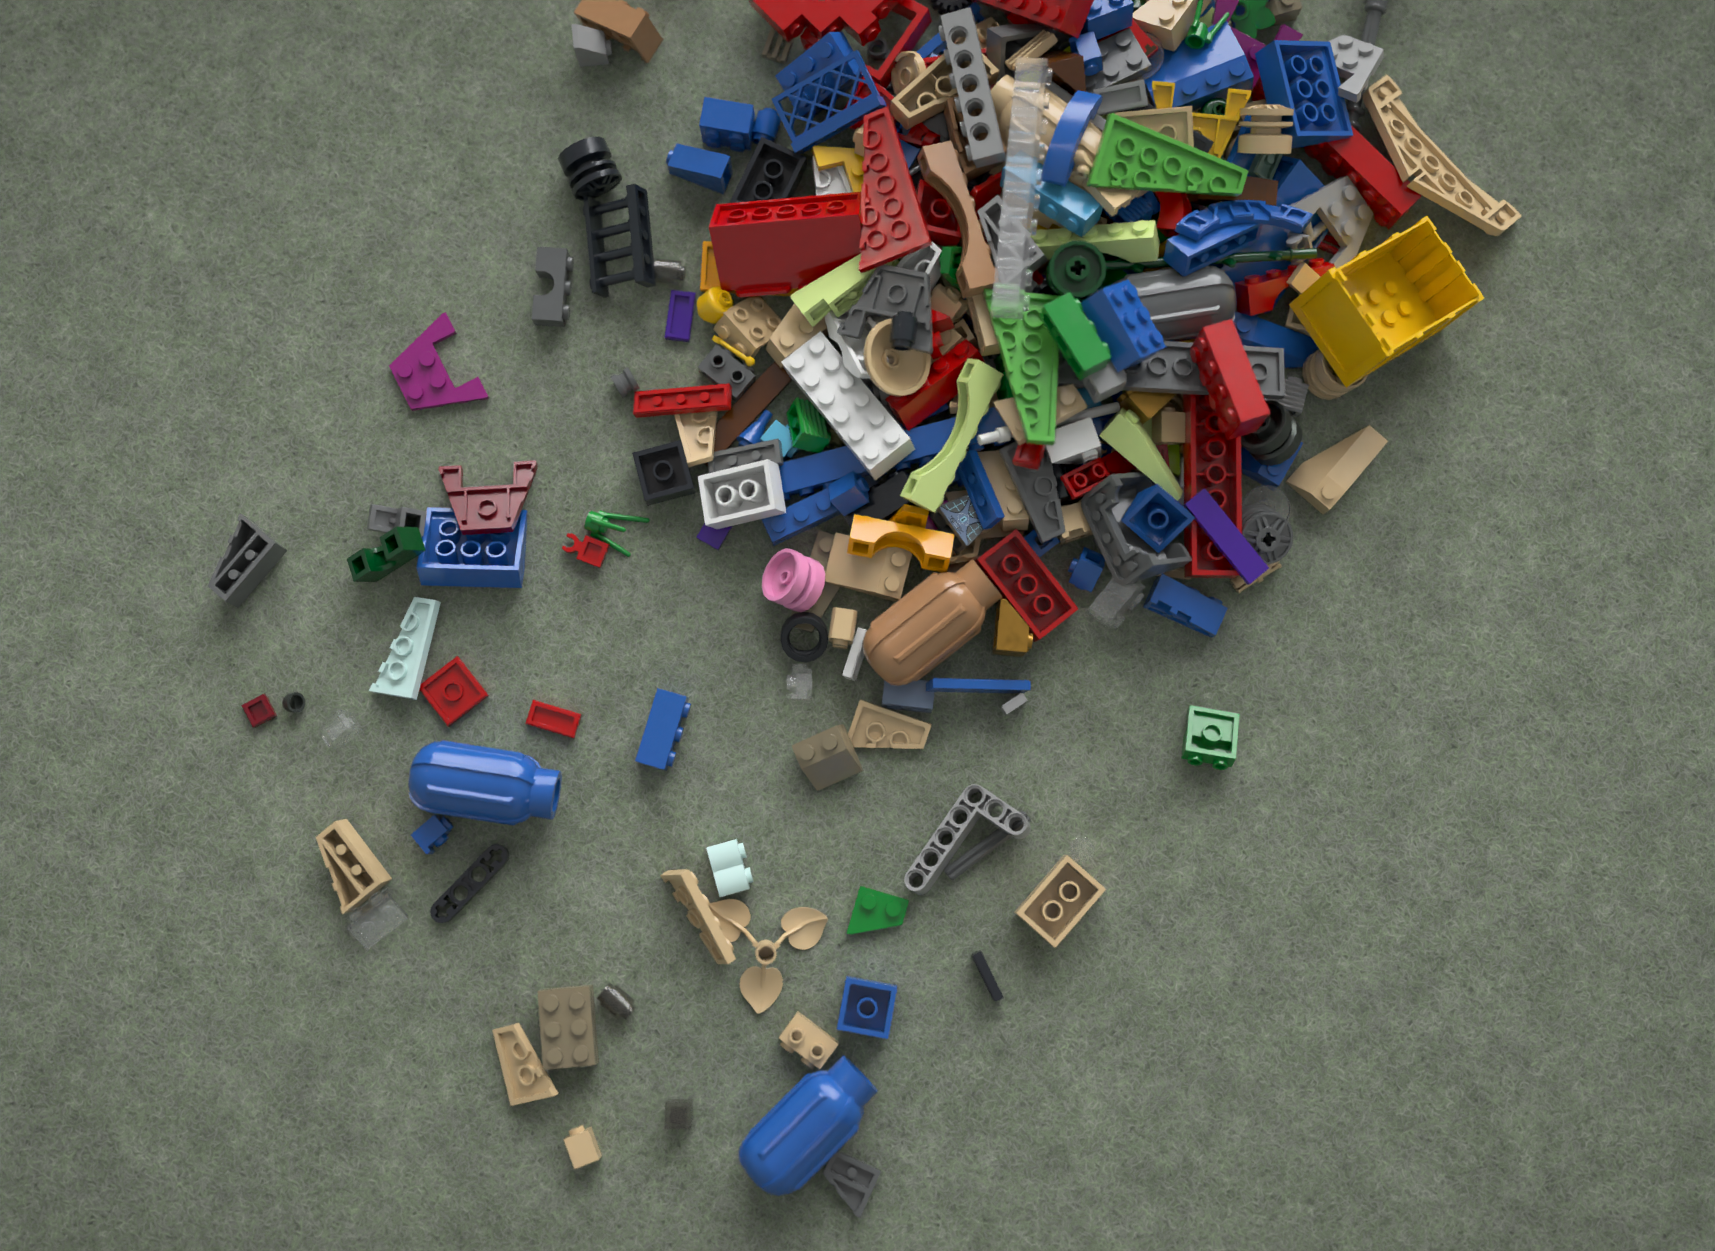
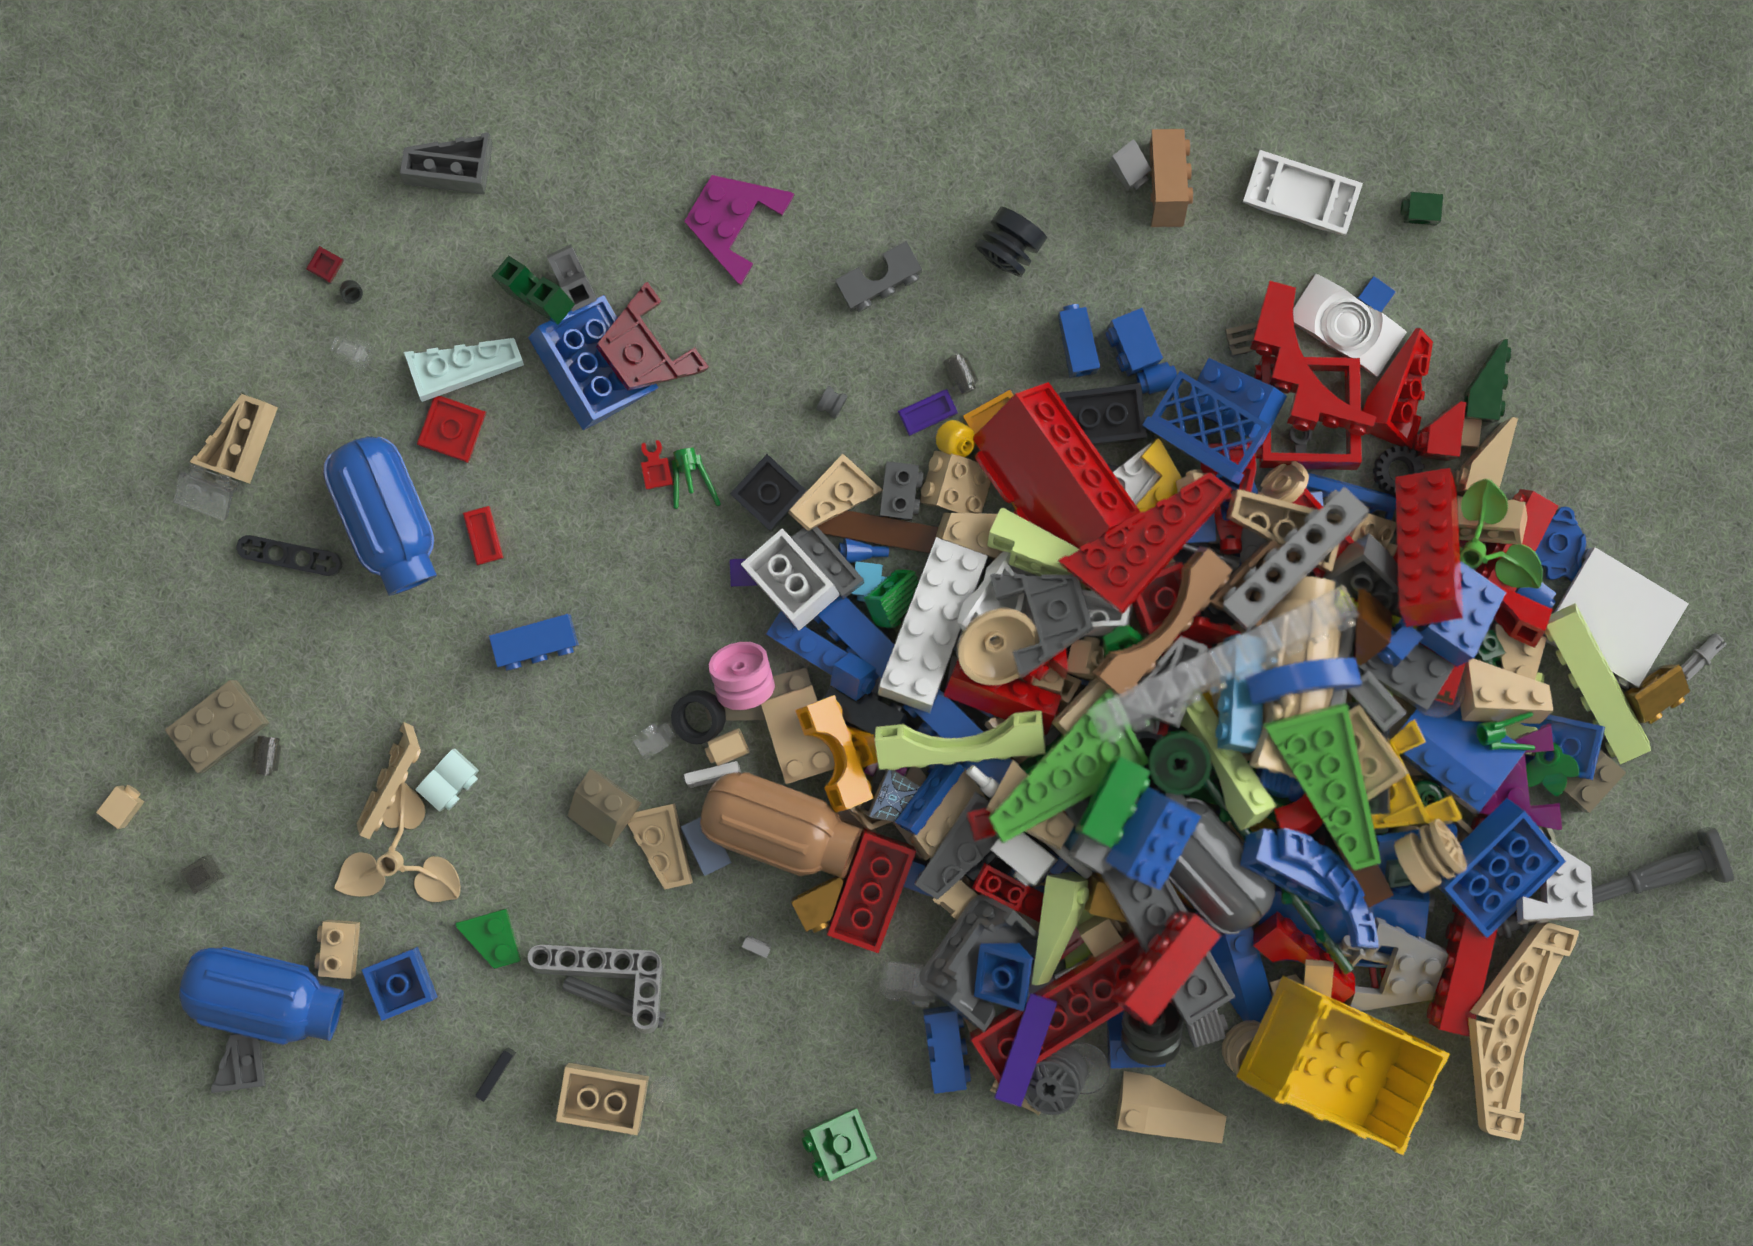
camera: 60 degrees right, 5 degrees up
(433, 833) = (311, 493): blue brick -> none
(521, 1066) = (156, 707): tan wing -> none
(640, 246) = (967, 336): black fence -> none
(682, 400) = (846, 467): red tile -> none
(750, 361) = (922, 506): yellow hinge -> none
(903, 331) = (1023, 639): black brick -> none
(977, 685) = (751, 904): blue tile -> none
(1034, 48) = (1370, 589): tan tile -> none
(1086, 569) = (921, 937): blue brick -> none

